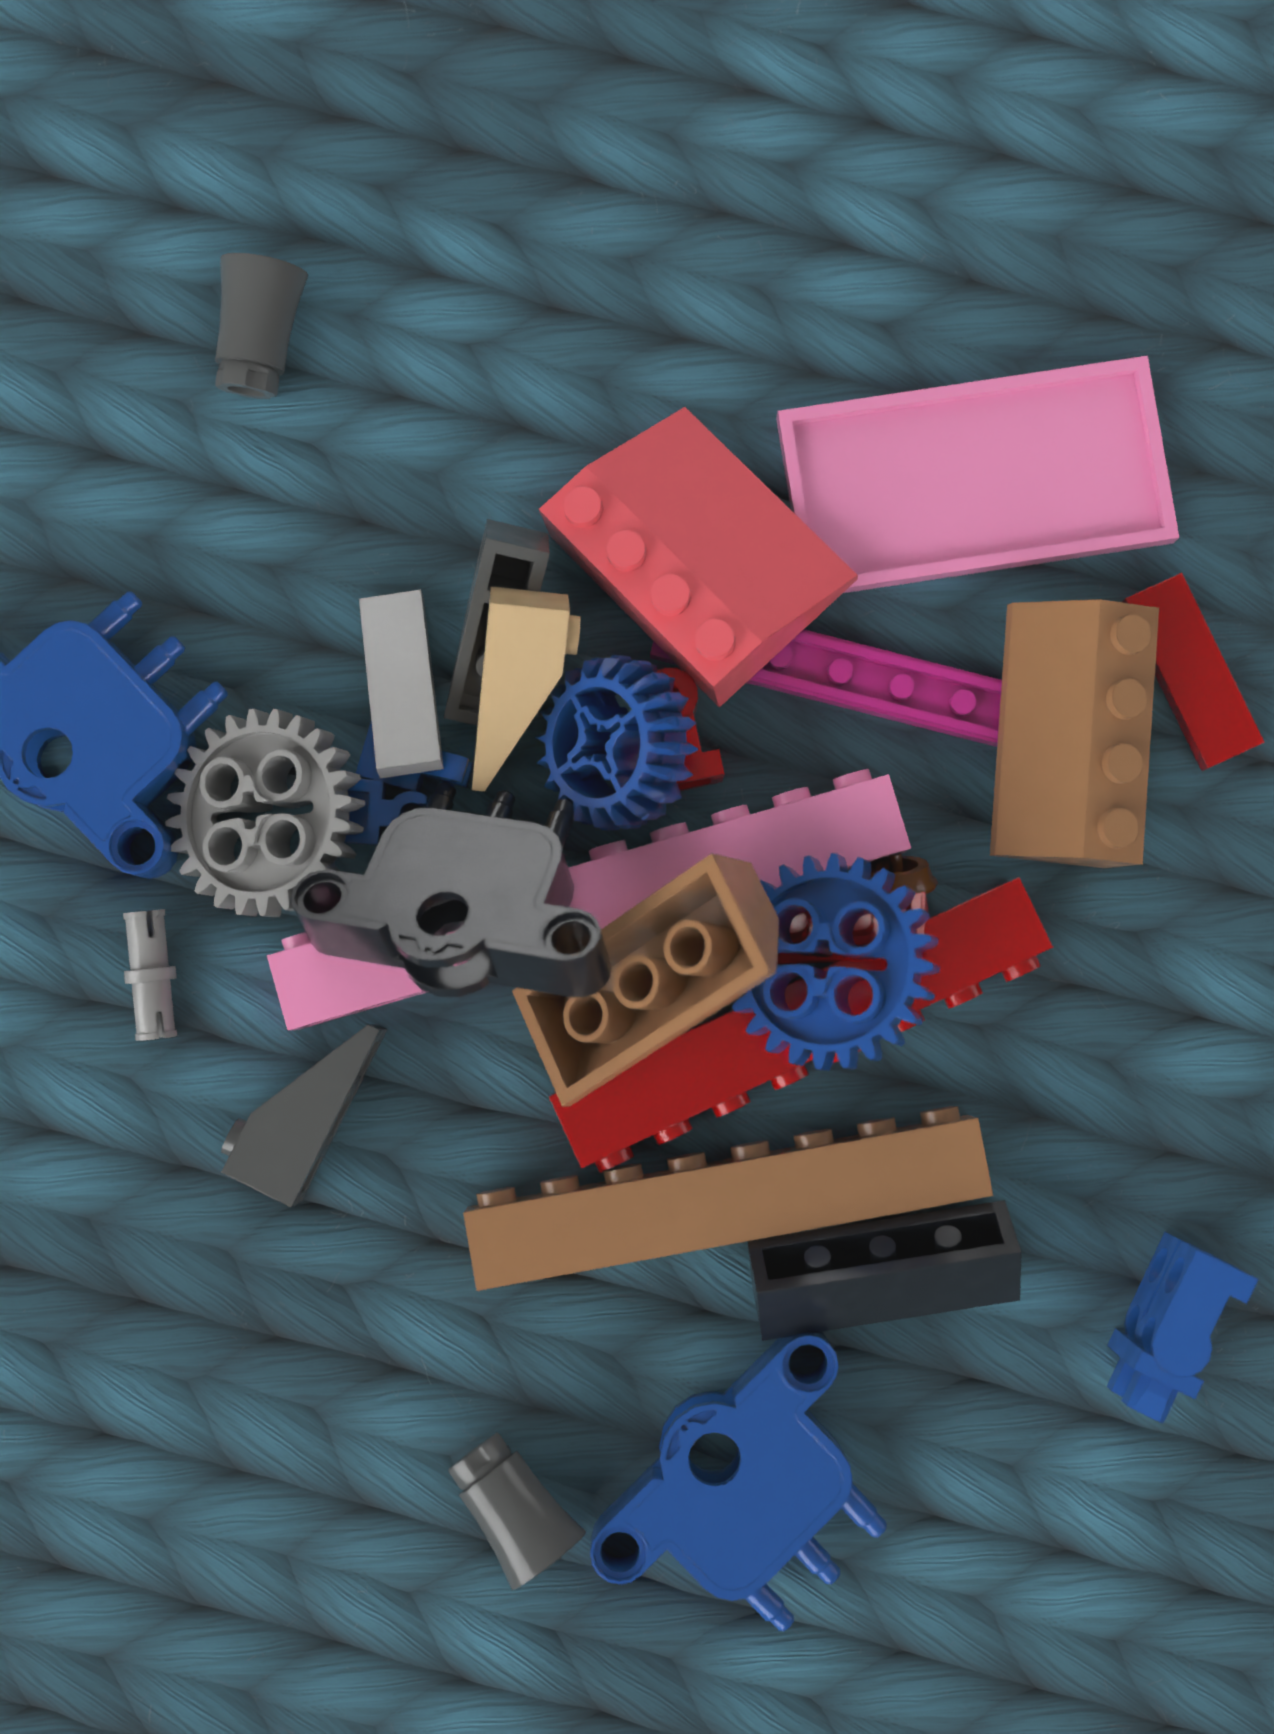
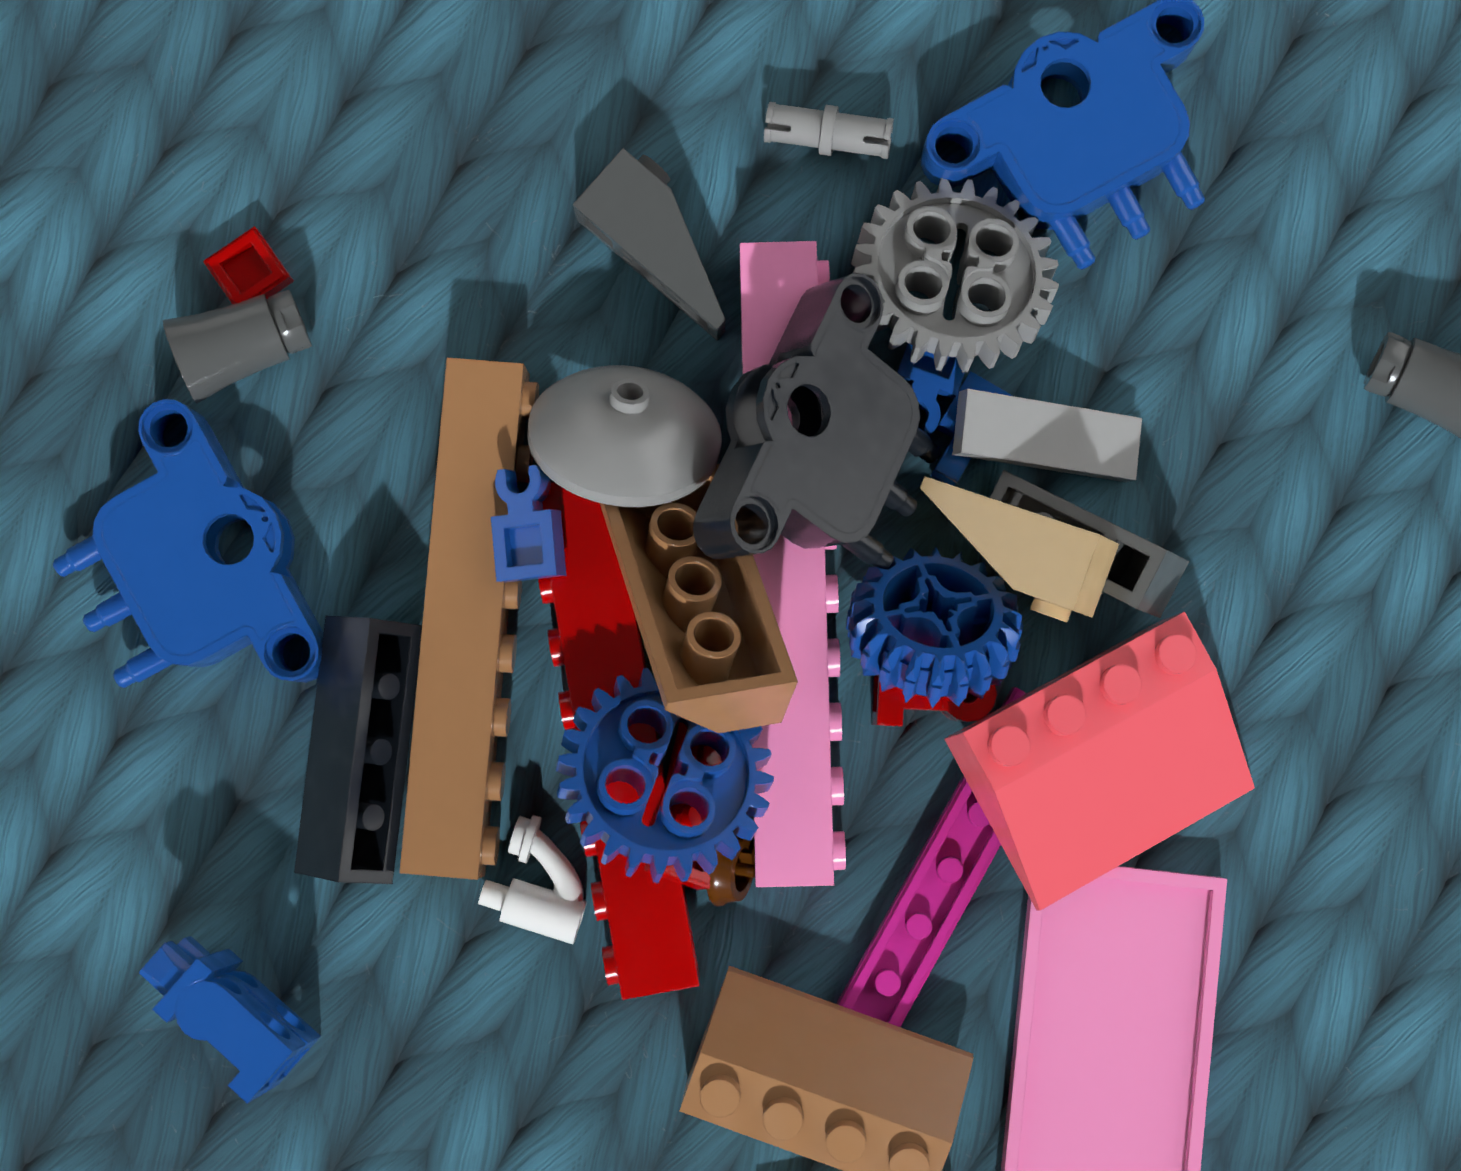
camera: 105 degrees right, 0 degrees up
(435, 1519) = (248, 268): none -> red tile
(510, 1092) = (624, 436): none -> light grey dish
(636, 1158) = (528, 539): none -> blue plate
(986, 1058) = (533, 907): none -> white plant

